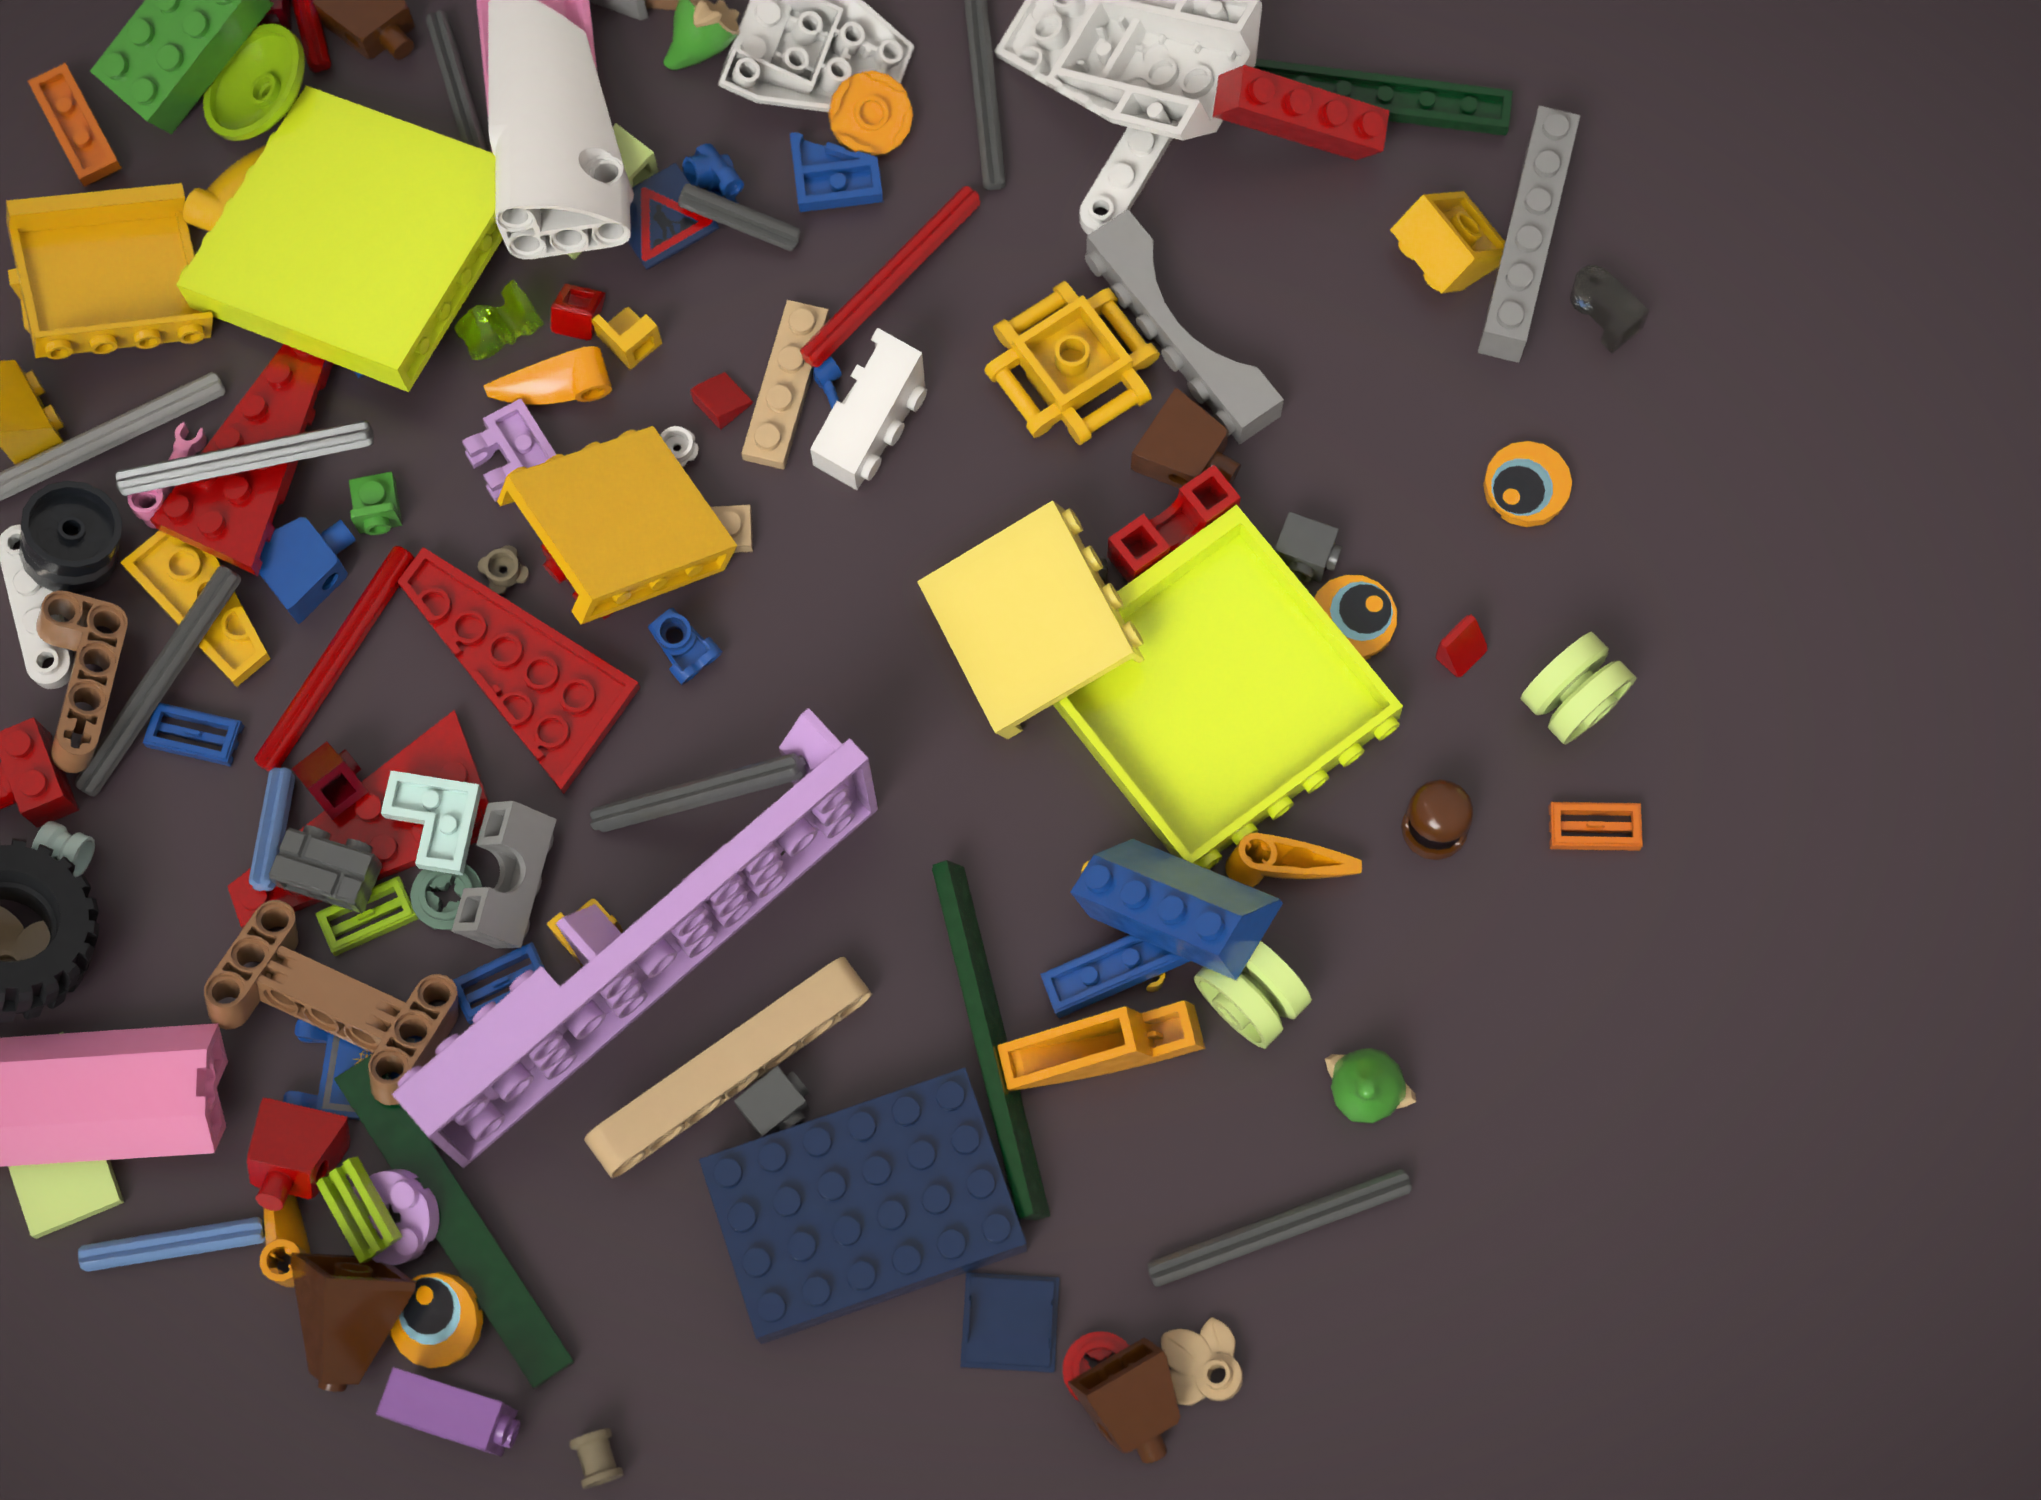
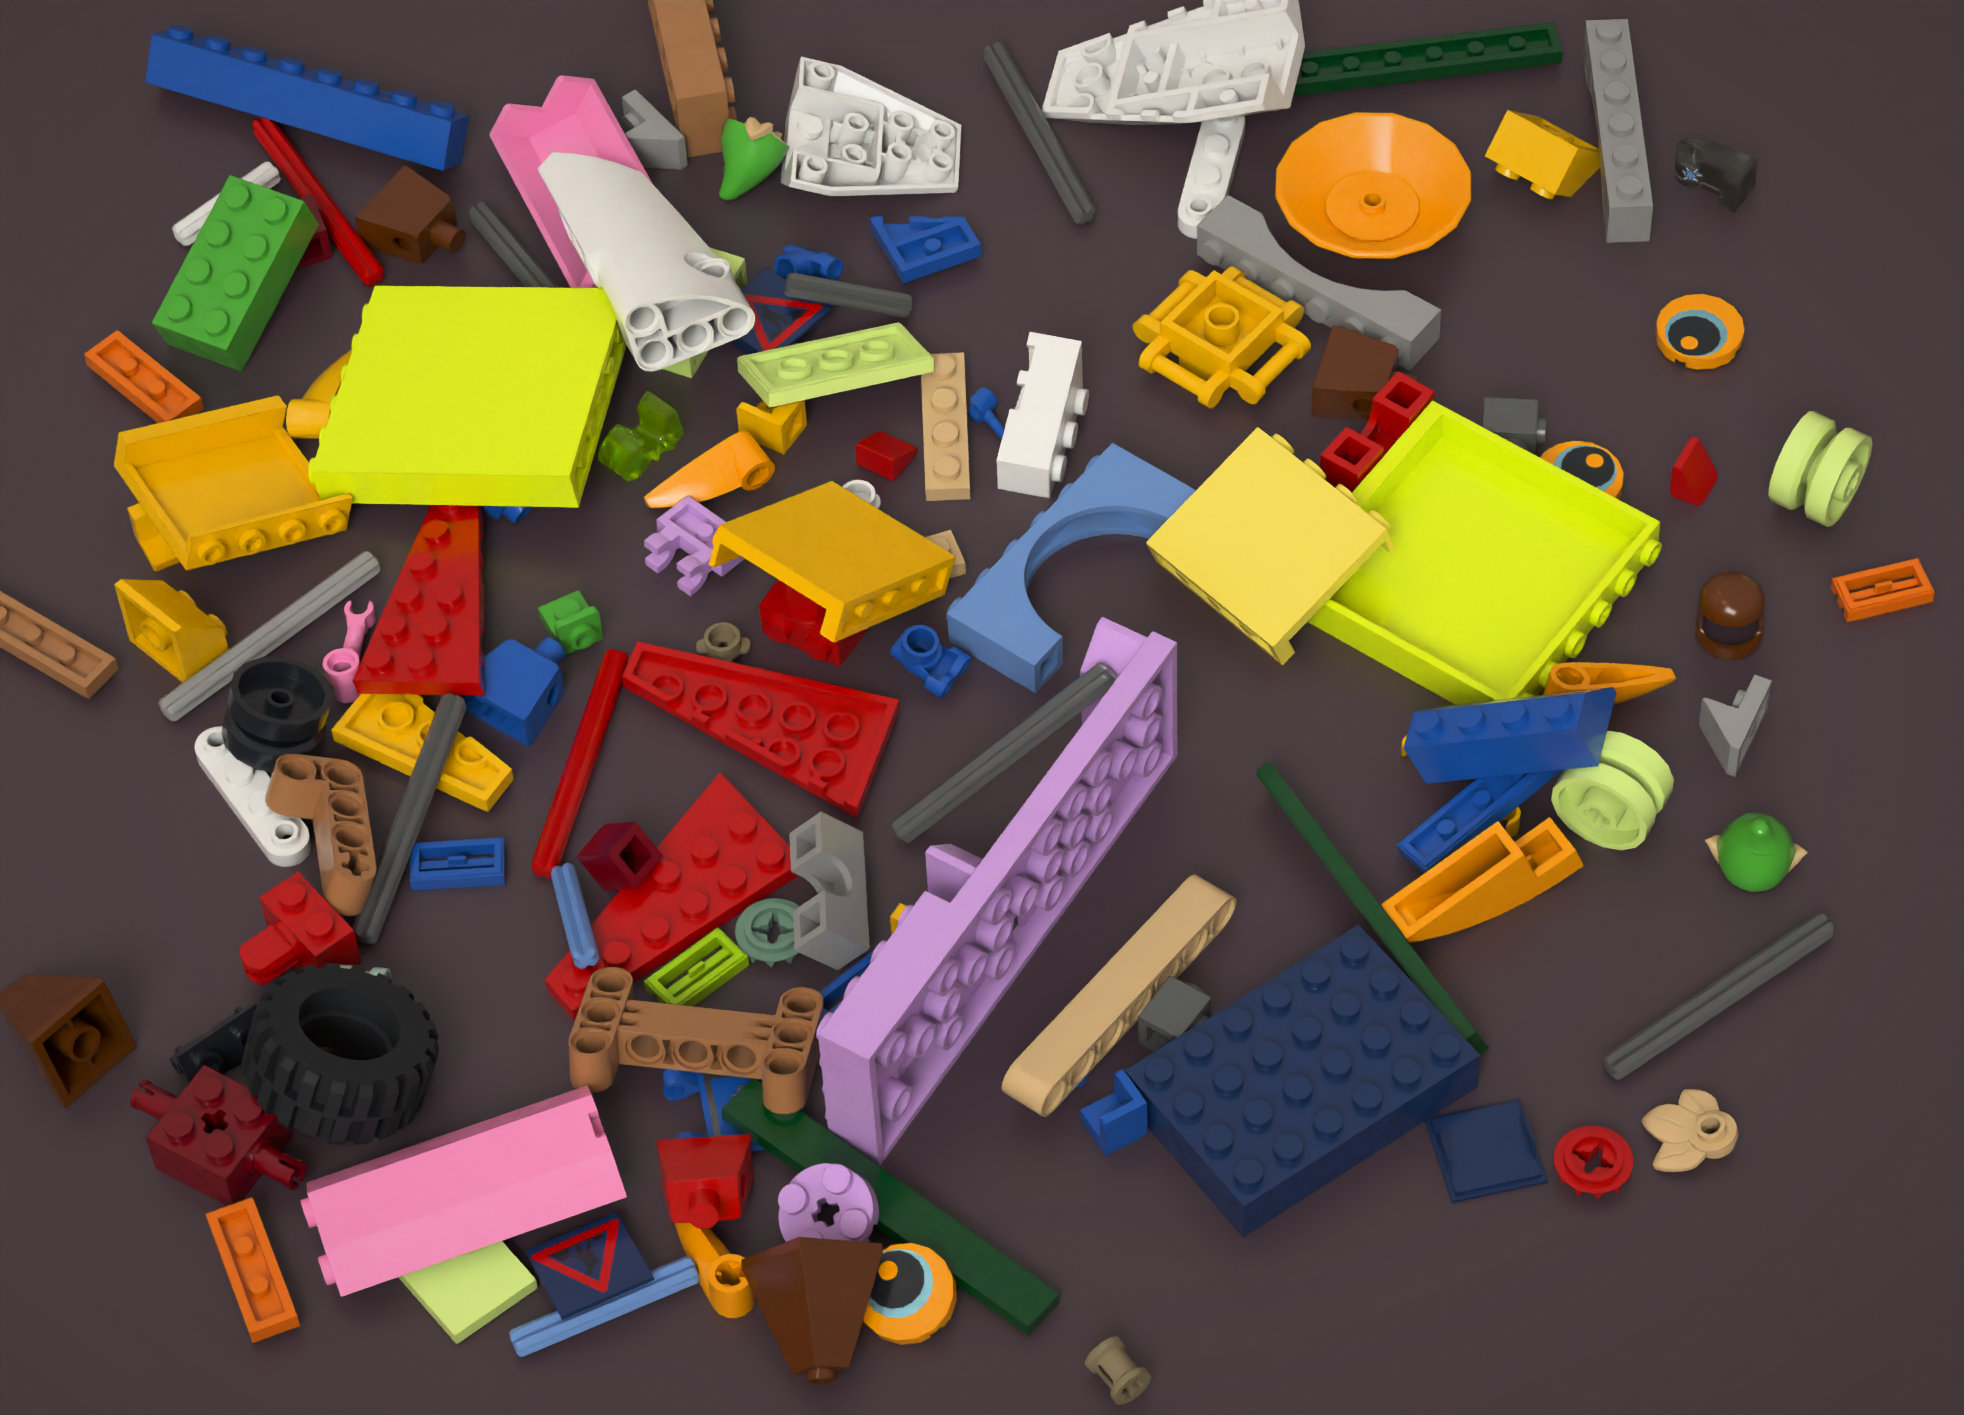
camera: 15 degrees left, 20 degrees down
(167, 1205) = (589, 1265): none -> dark blue piece
(245, 458) = (435, 596): axle -> none
(256, 84) = (323, 297): lime dish -> none
(325, 868) = (648, 925): dark grey brick -> none
(354, 1214) = (764, 1182): lime tile -> none
(444, 809) = (744, 844): light aqua plate -> none
(449, 1412) = (957, 1358): medium lavender window -> none
(574, 311) = (712, 418): red slope -> none
(683, 1190) = (1117, 1117): none -> blue panel
(699, 295) = (835, 364): none -> yellowish green tile
(758, 614) = (996, 617): none -> medium blue arch
(870, 113) = (943, 182): light orange tile -> none
(890, 277) = (1015, 310): red axle -> none
(1131, 1399) = (1637, 1166): reddish brown torso -> none
(1277, 205) = (1373, 185): none -> light orange dish
(1300, 113) = (1364, 73): red brick -> none
(1394, 947) = (1734, 727): none -> light grey slope

